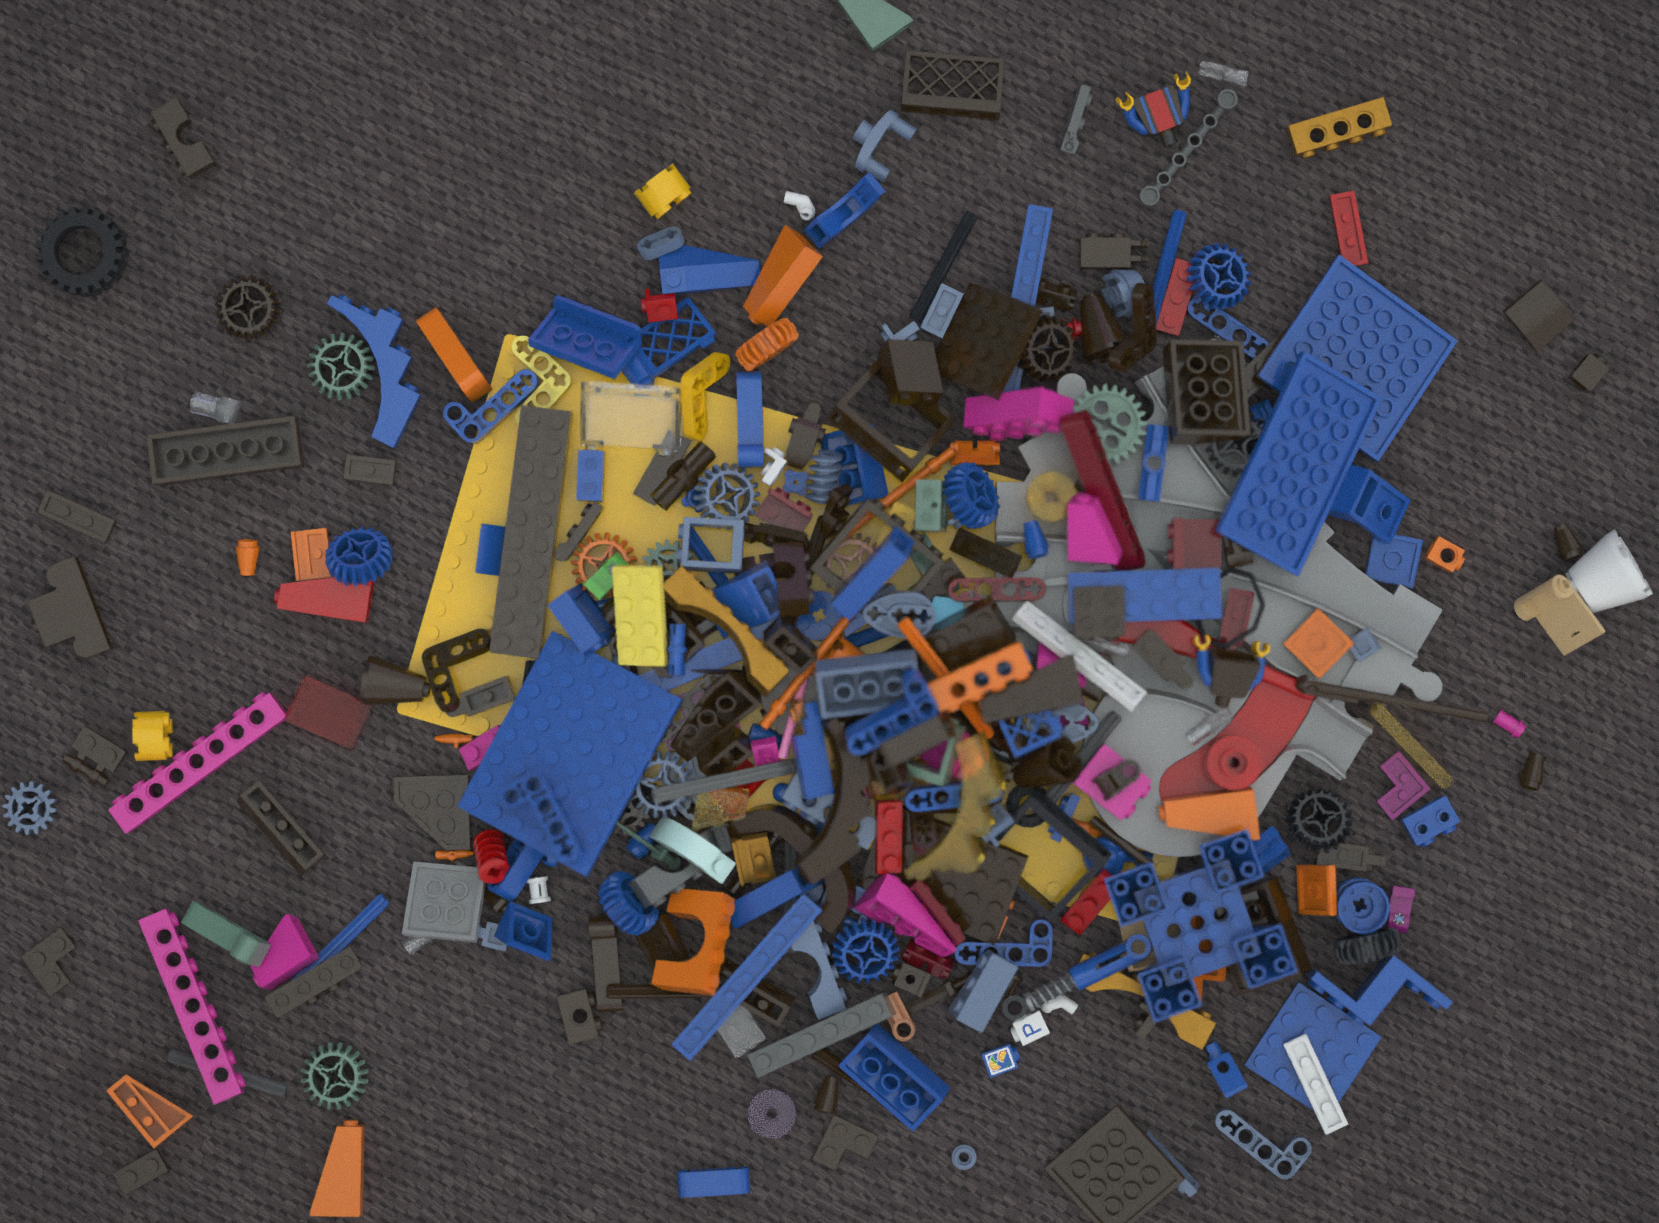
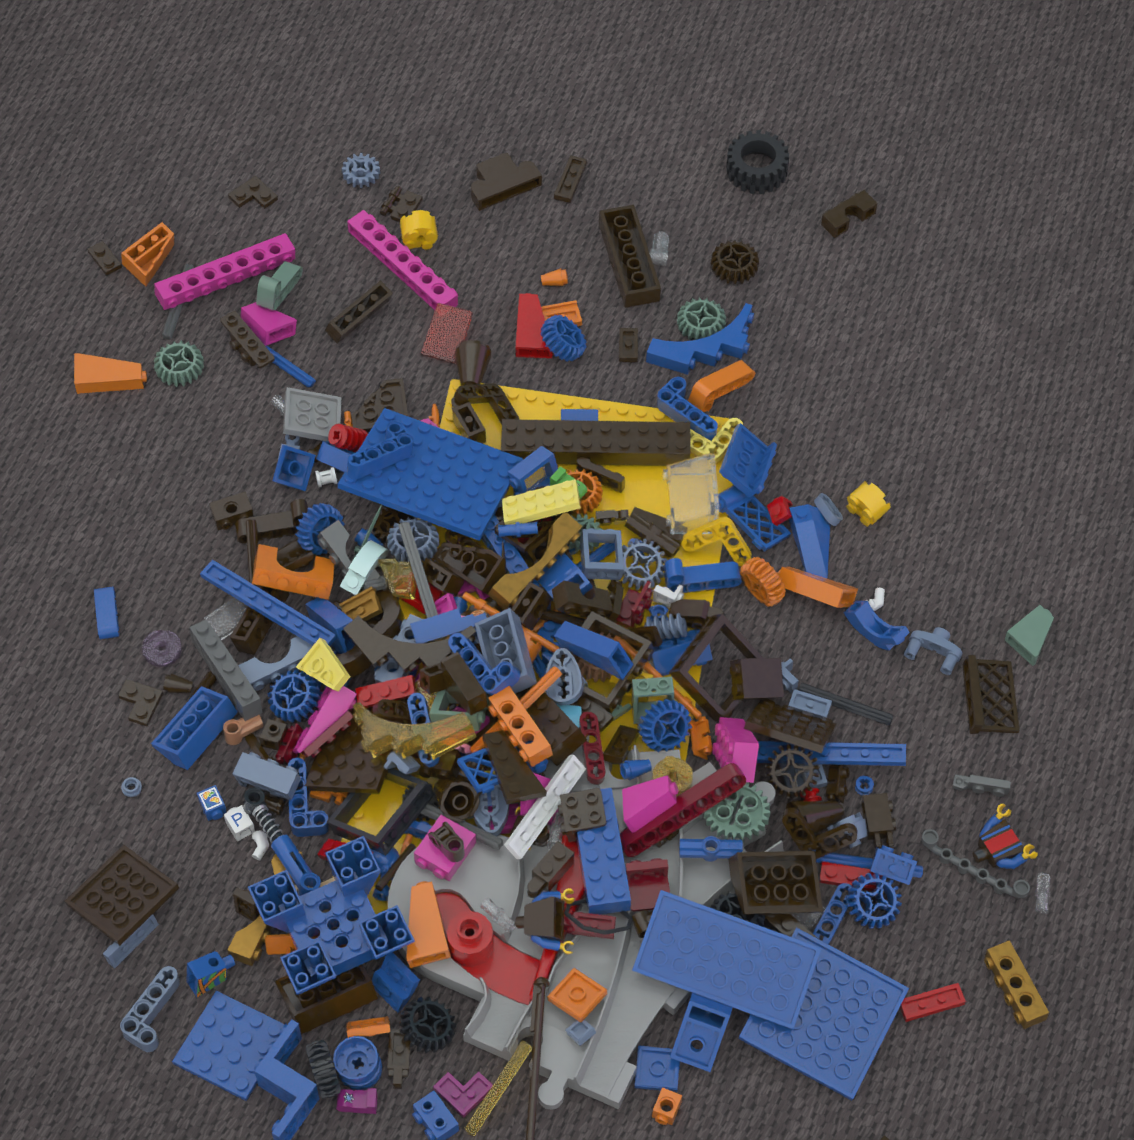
camera: 80 degrees right, 30 degrees down
(590, 475) = (643, 476): blue brick -> none
(646, 530) = (609, 516): none -> dark brown plate
(849, 911) = (324, 665): none -> light yellow wing
(1059, 254) = (864, 779): none -> blue bush
(1174, 244) = (893, 865): none -> blue bracket
(1315, 1084) = (202, 1044): white tile -> none

